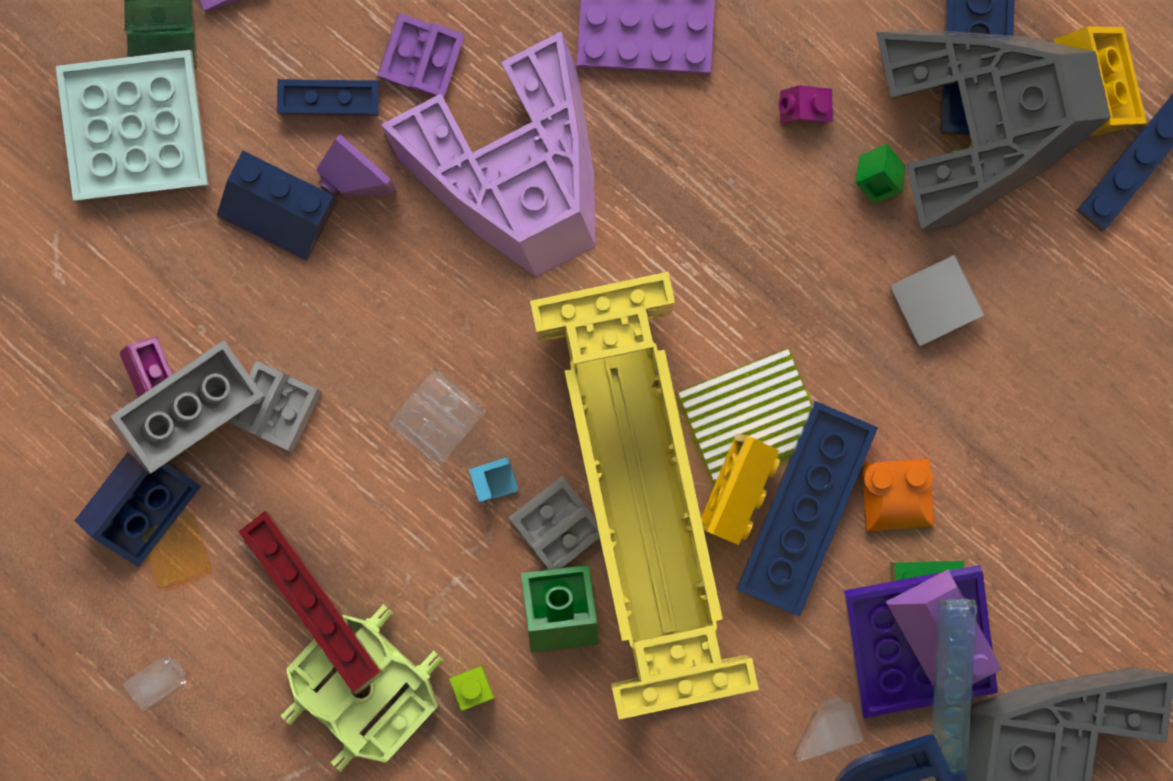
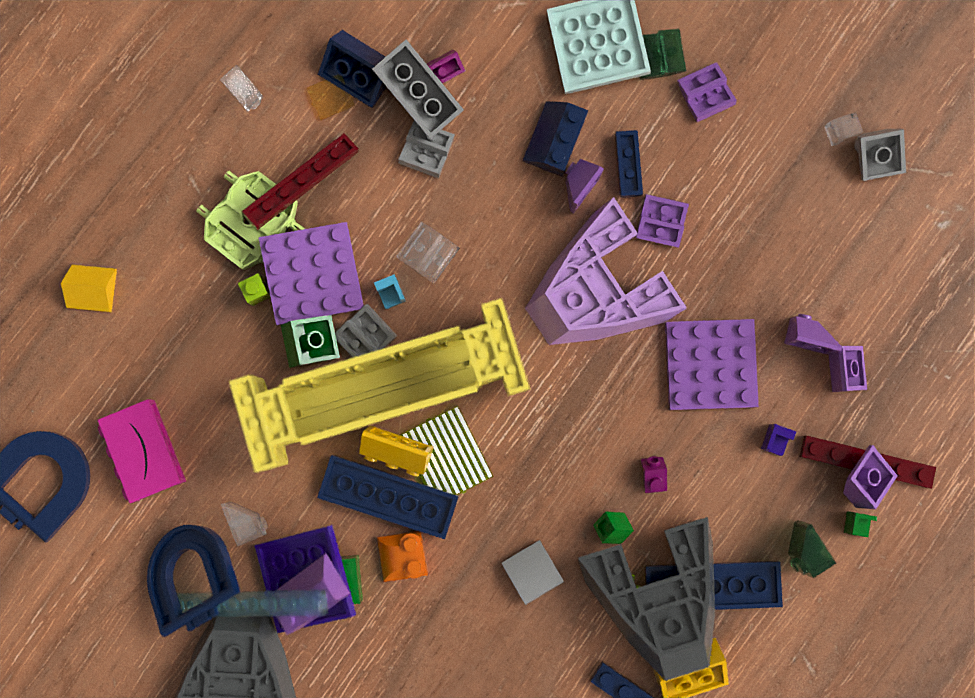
camera: 80 degrees right, 0 degrees up
(455, 598) = (311, 273): none -> medium lavender plate

